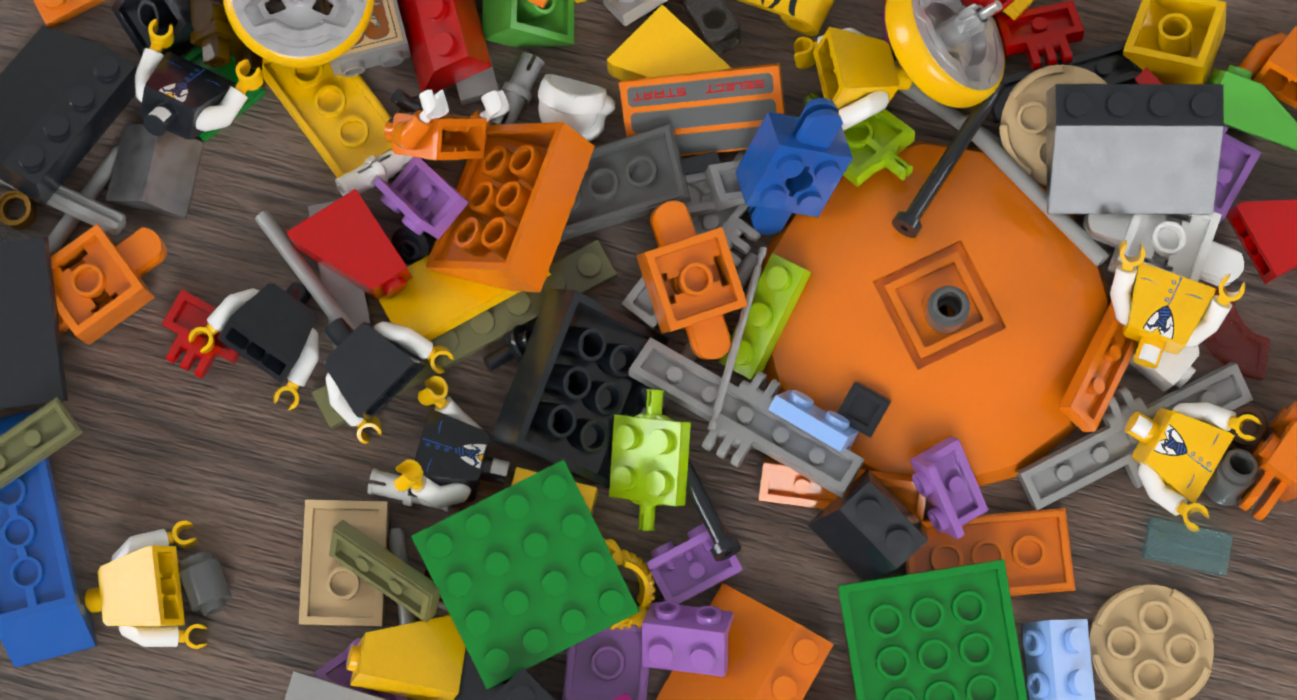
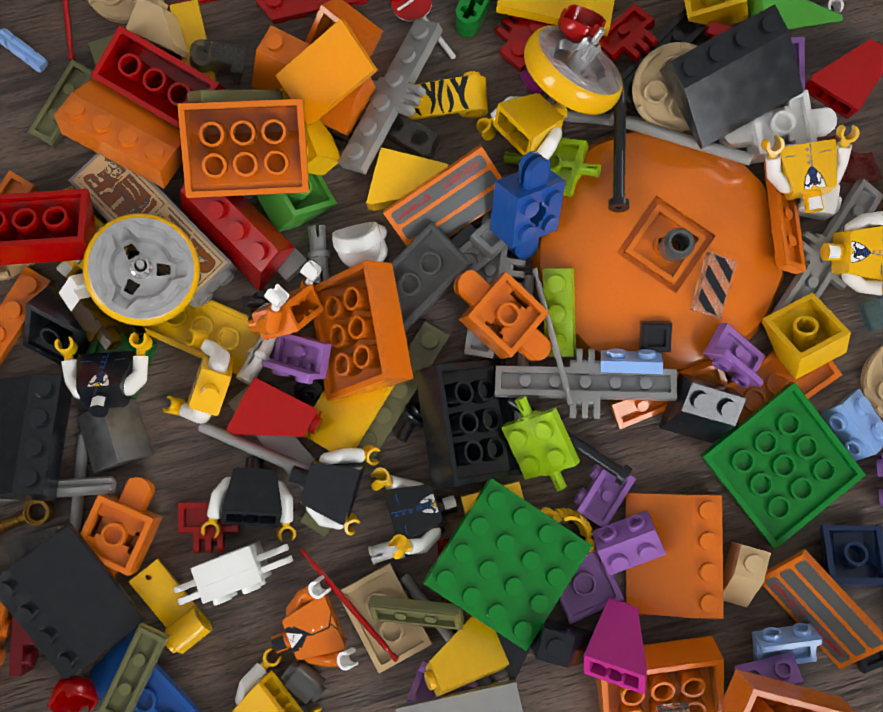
camera: 35 degrees left, 5 degrees up
(103, 406) = (183, 622): none -> yellow door
(197, 402) = (236, 570): none -> white brick
(253, 526) = (314, 629): none -> orange torso
(299, 168) = (209, 384): none -> torso
(310, 522) = (349, 605): none -> red piece
(967, 384) = (713, 285): none -> clear tile
(1051, 511) = (806, 335): none -> yellow slope

